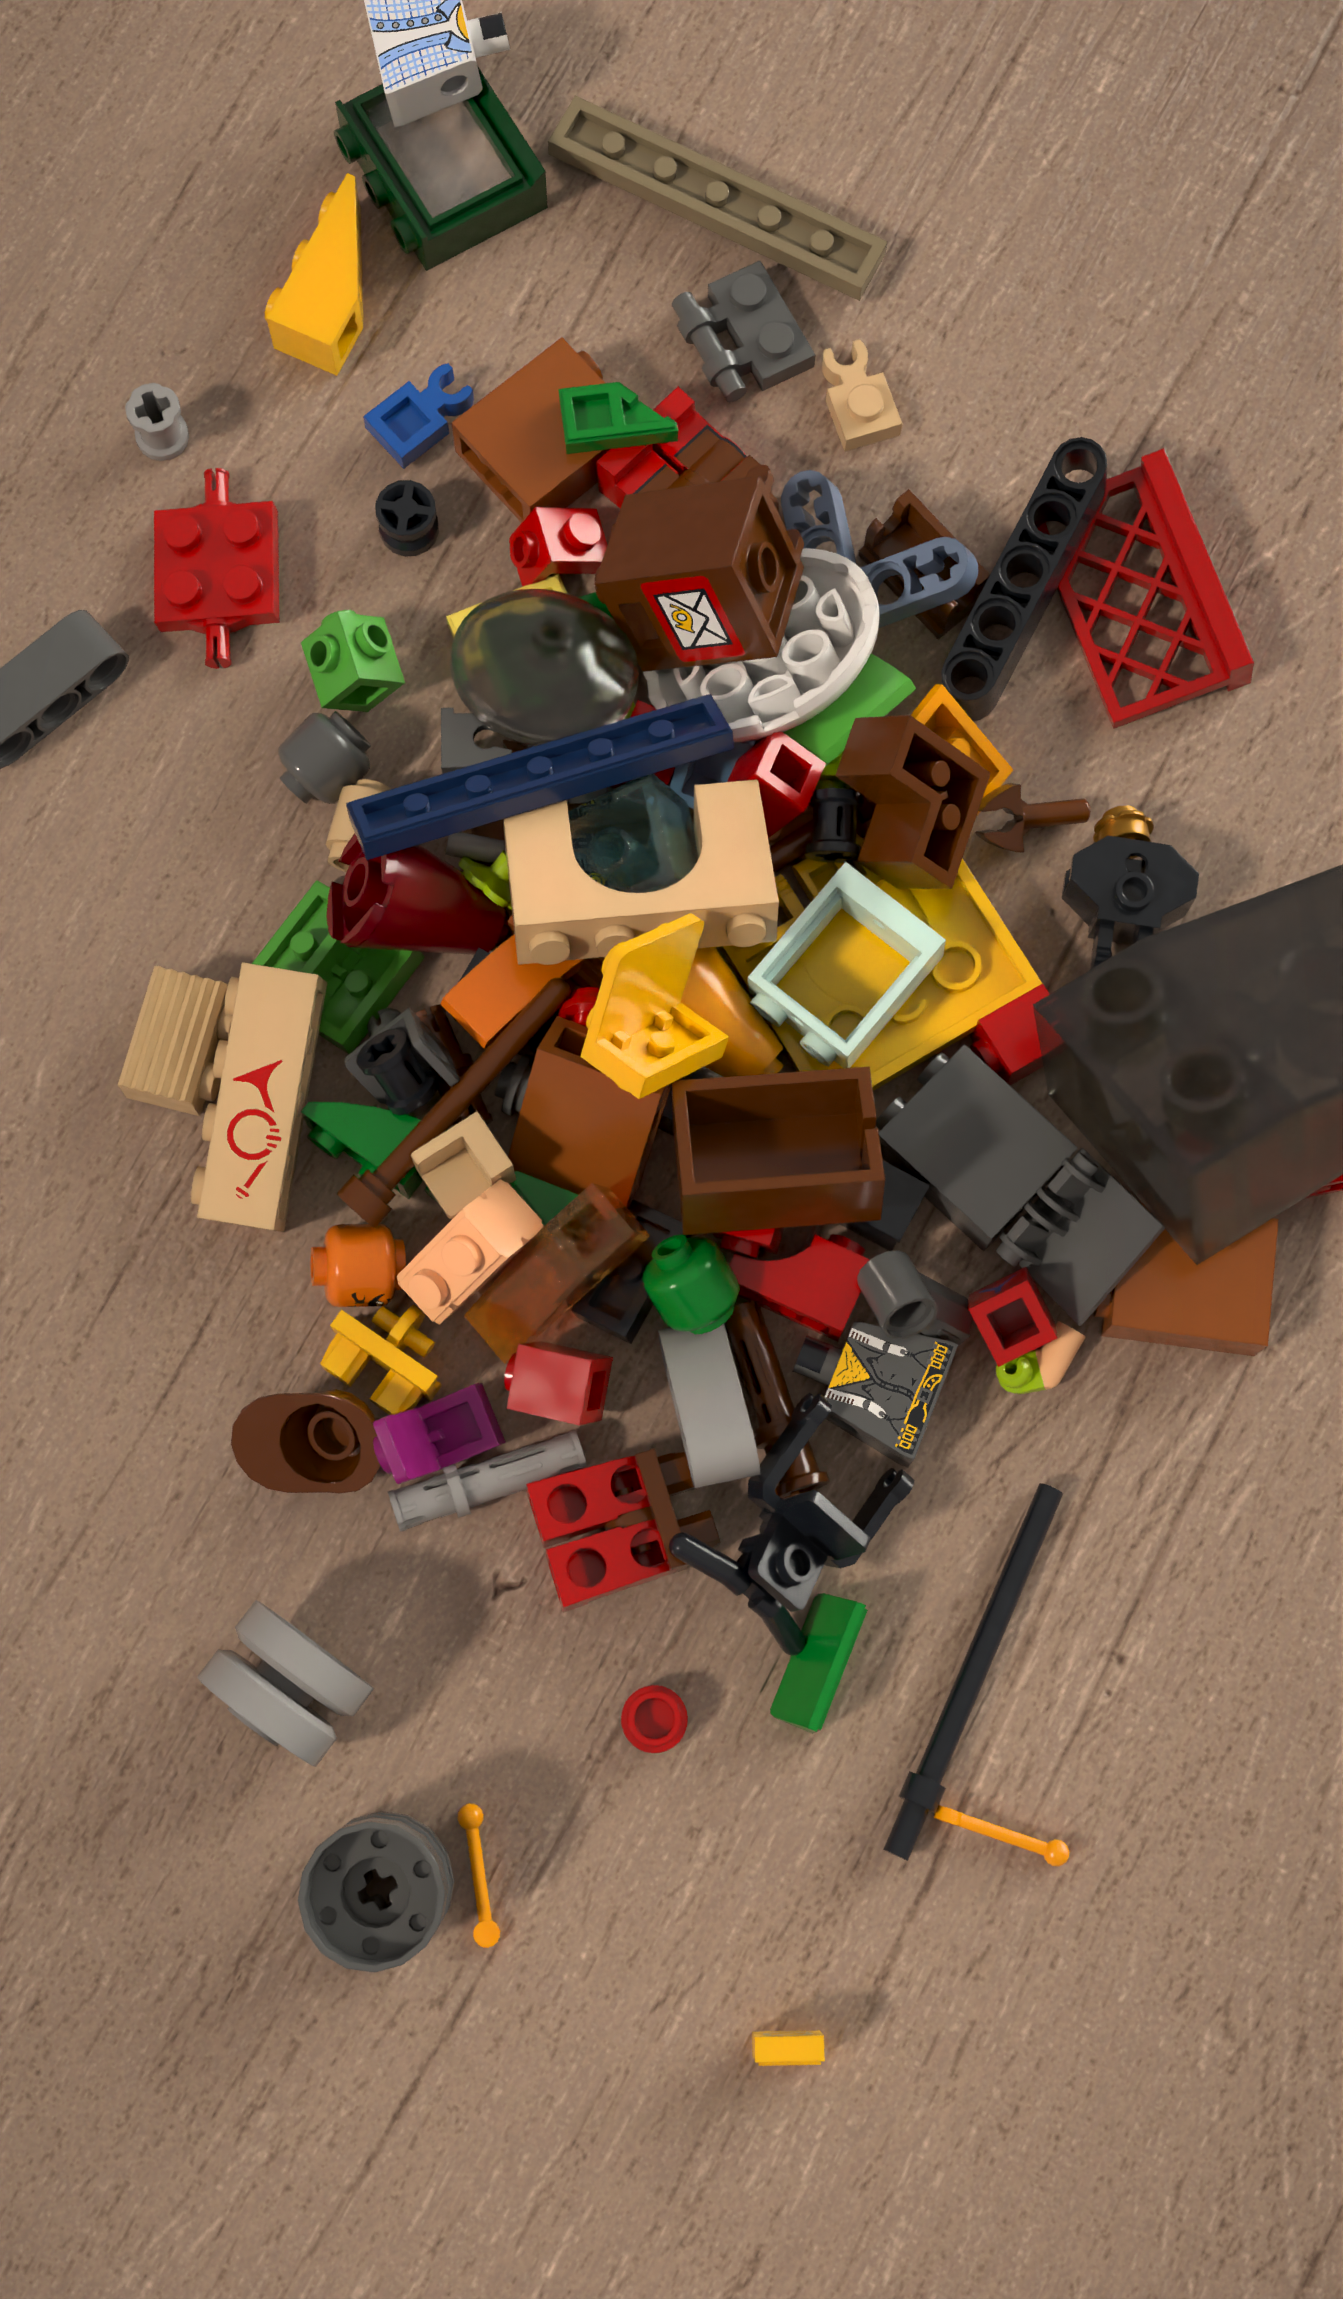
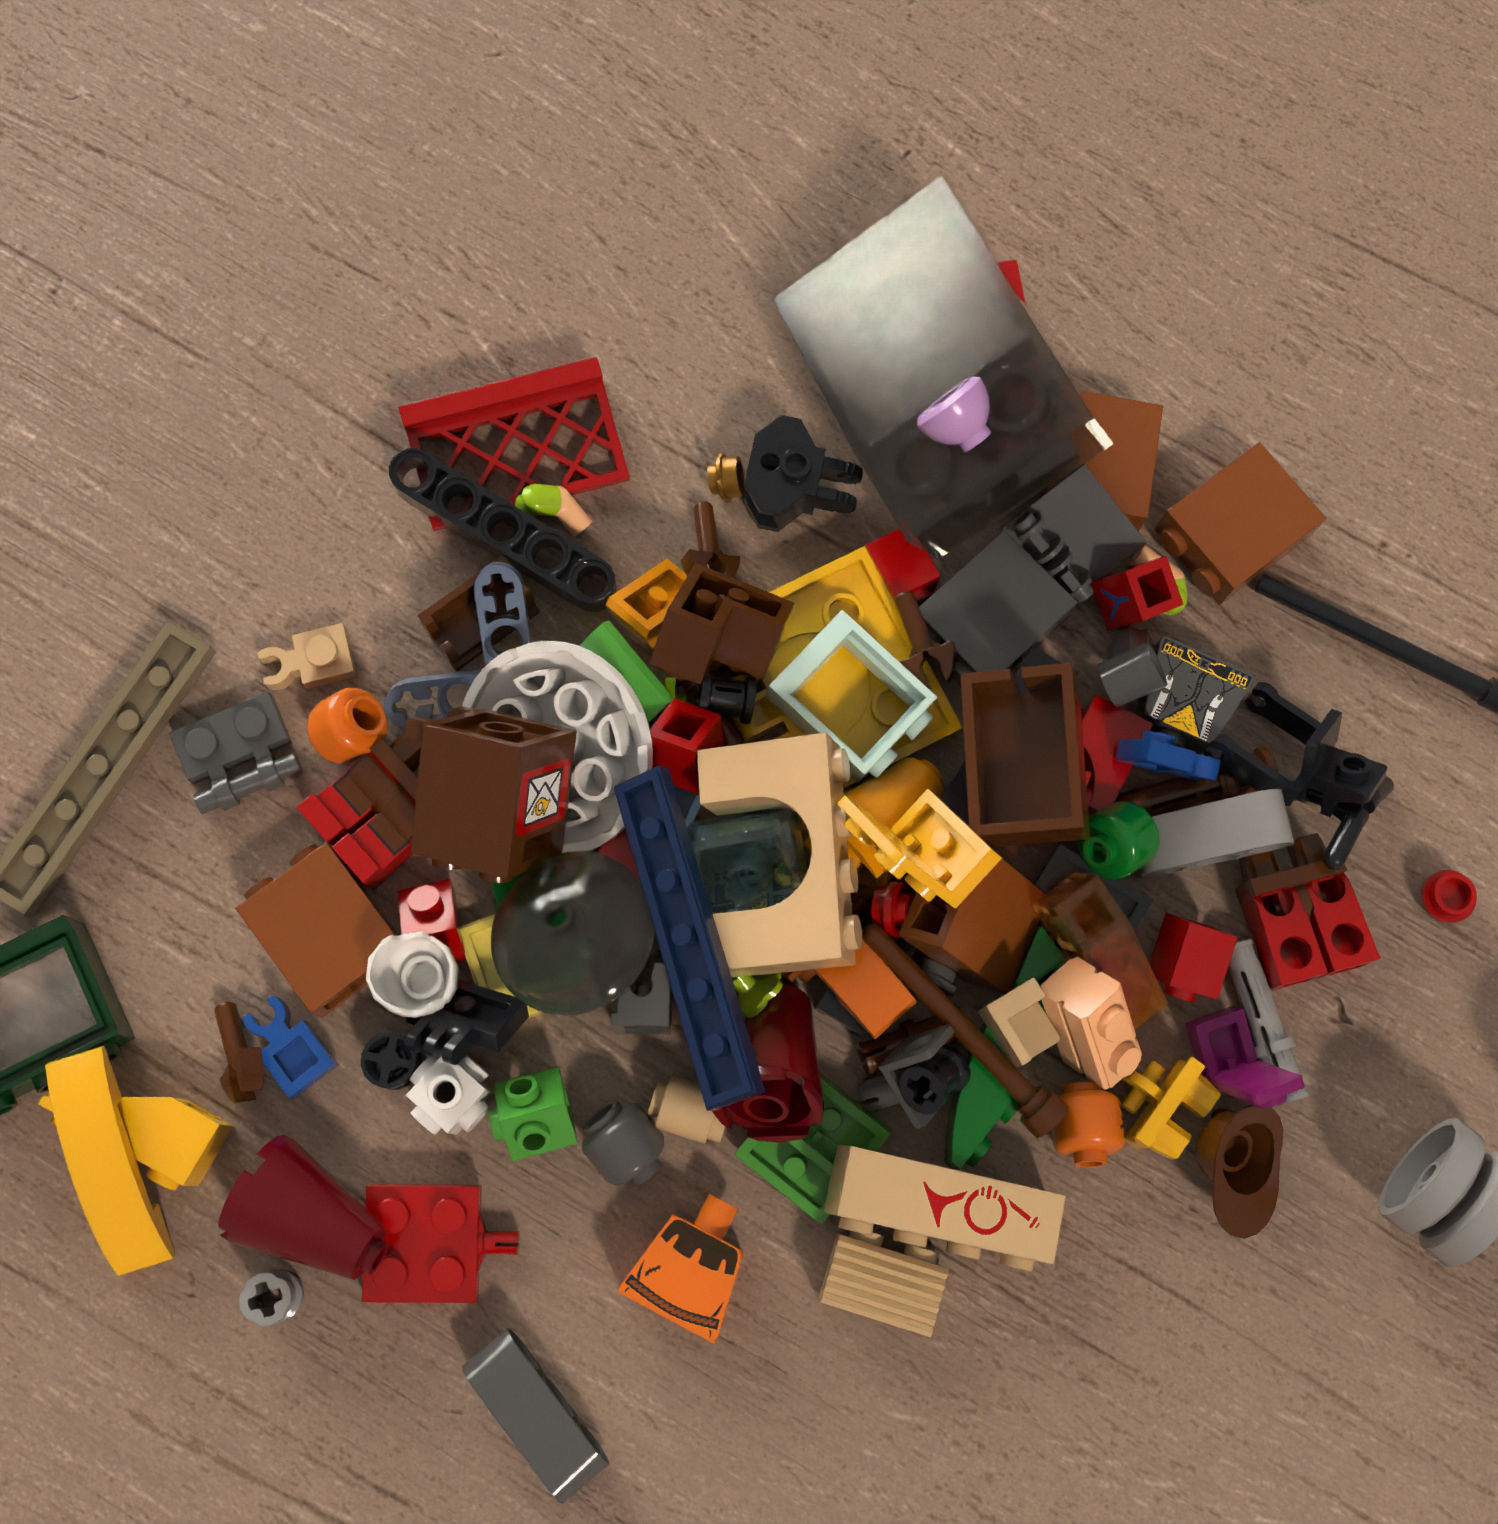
camera: 90 degrees left, 0 degrees up
(188, 835) = (689, 1270): none -> orange torso
(240, 430) = (302, 1214): none -> dark red cone
(285, 236) = (103, 1162): none -> yellow slope
(372, 572) = (469, 1100): none -> white brick
(399, 368) = (245, 1064): none -> reddish brown bar
(453, 568) = (469, 1019): none -> black hinge
(492, 511) = (412, 974): none -> white hair
(610, 418) = (325, 868): green tile -> none
(794, 428) = (346, 725): none -> orange head
(798, 1327) = (1159, 754): none -> blue plate
(817, 1671) = (1414, 767): green slope -> none
(918, 1053) = (922, 641): none -> reddish brown bar
(1070, 636) = (553, 501): none -> arm
(1121, 1453) = (1238, 523): none -> dark orange brick
(1174, 1019) = (958, 415): none -> lavender brick

